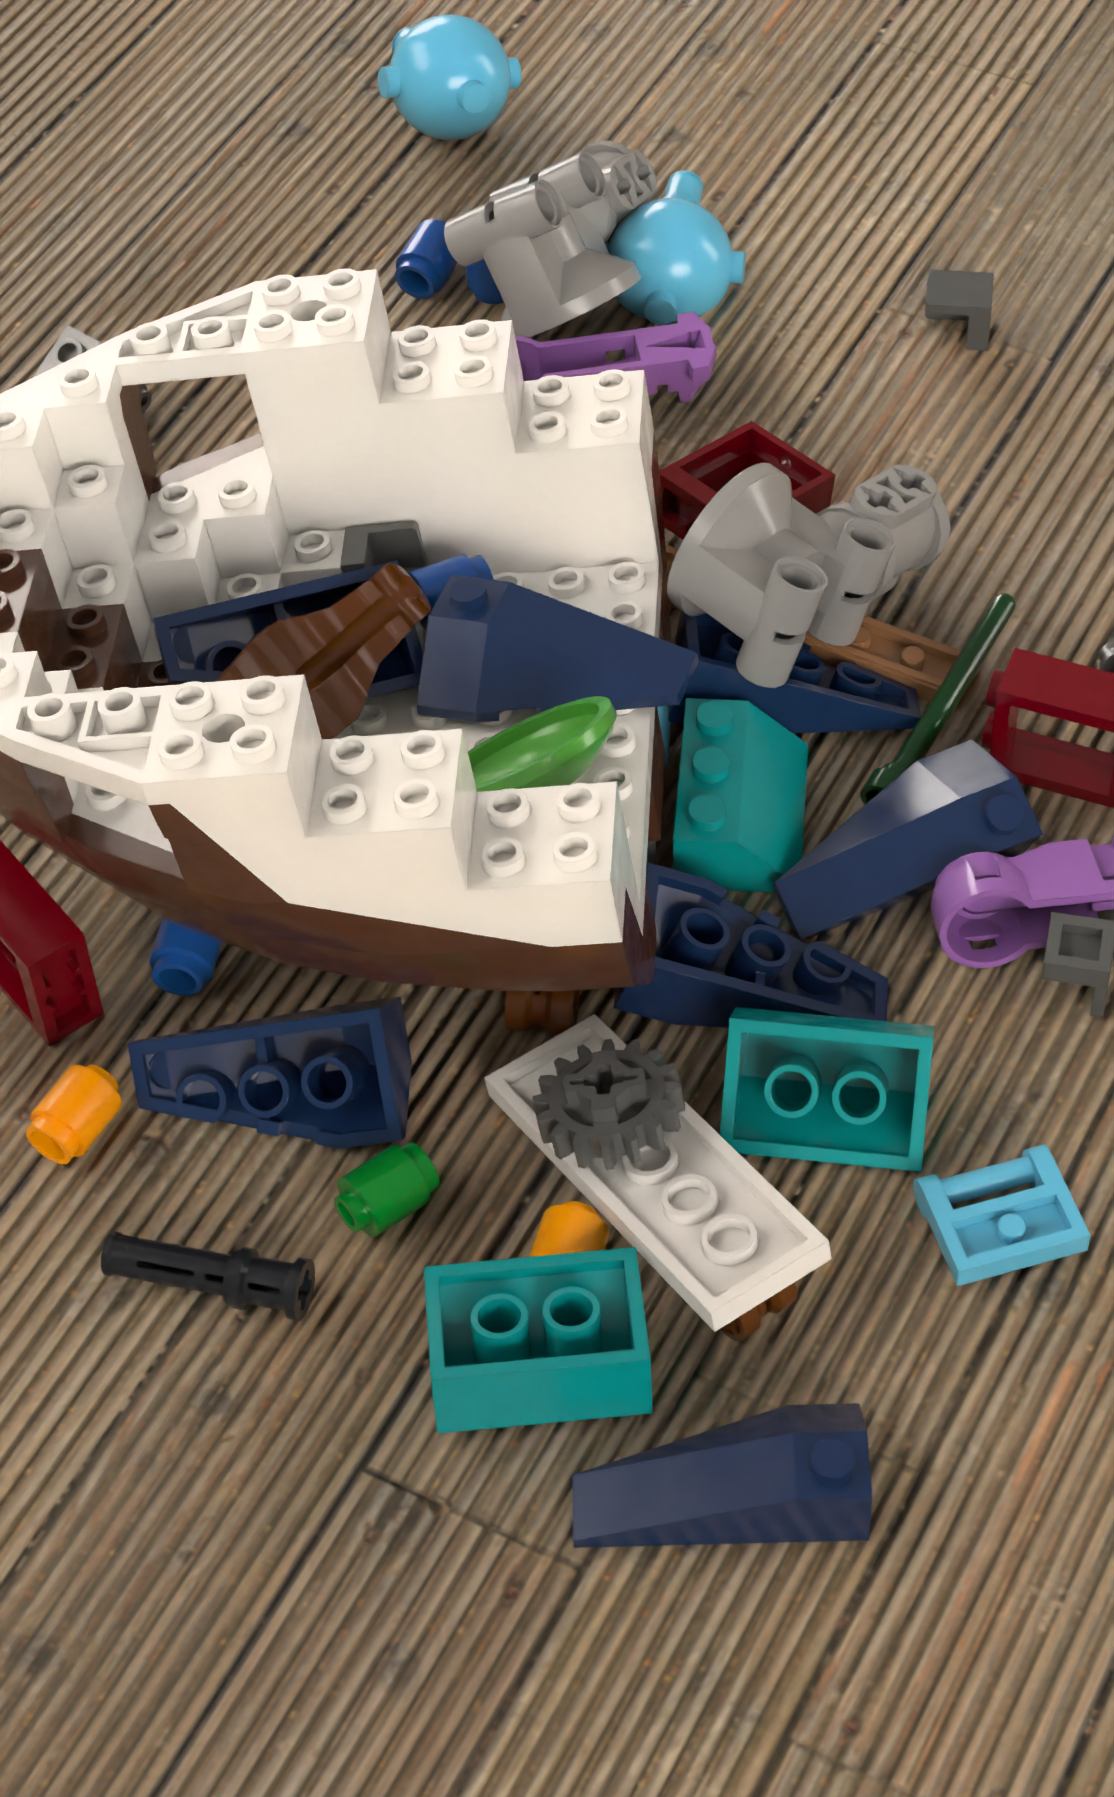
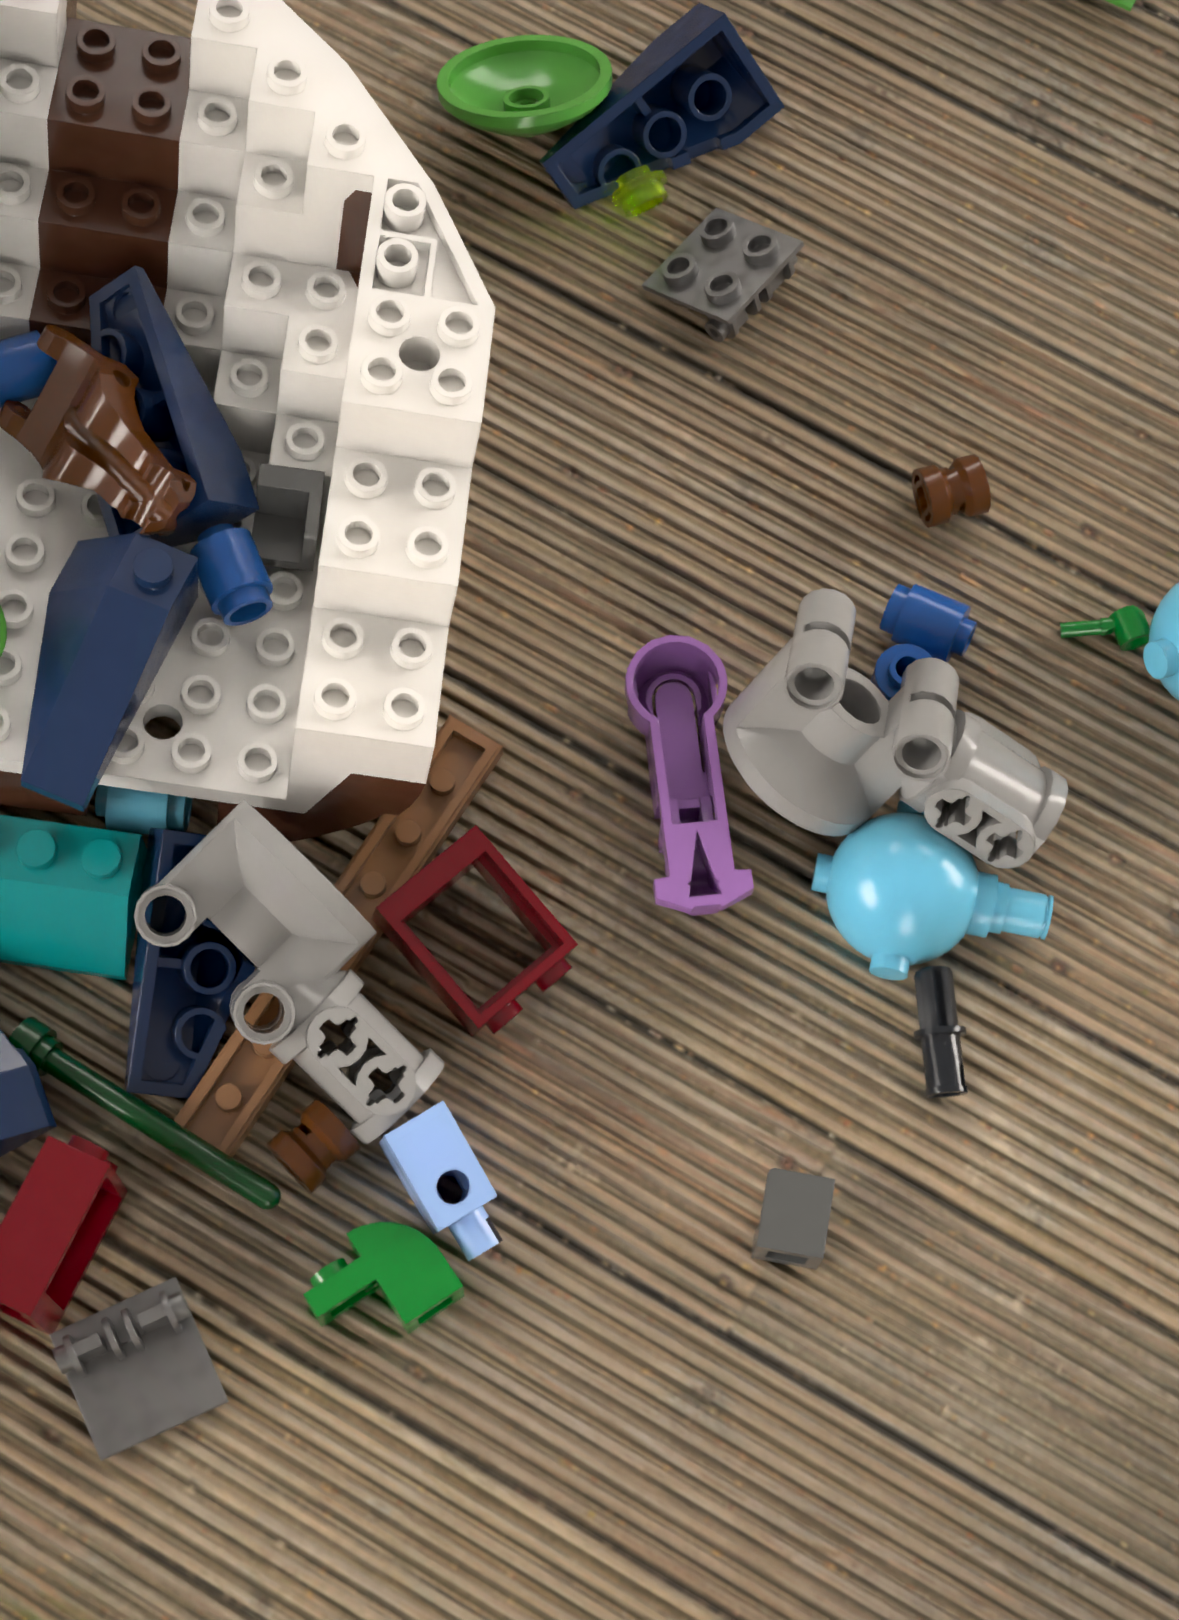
camera: 85 degrees right, 20 degrees up
(305, 245) = (947, 491): none -> reddish brown wheel
(426, 156) = (1126, 623): none -> green hand
(789, 241) = (939, 1032): none -> black axle
(949, 591) = (313, 1146): none -> reddish brown wheel
(977, 490) = (434, 1148): none -> light blue torso
(1056, 537) = (398, 1264): none -> green brick

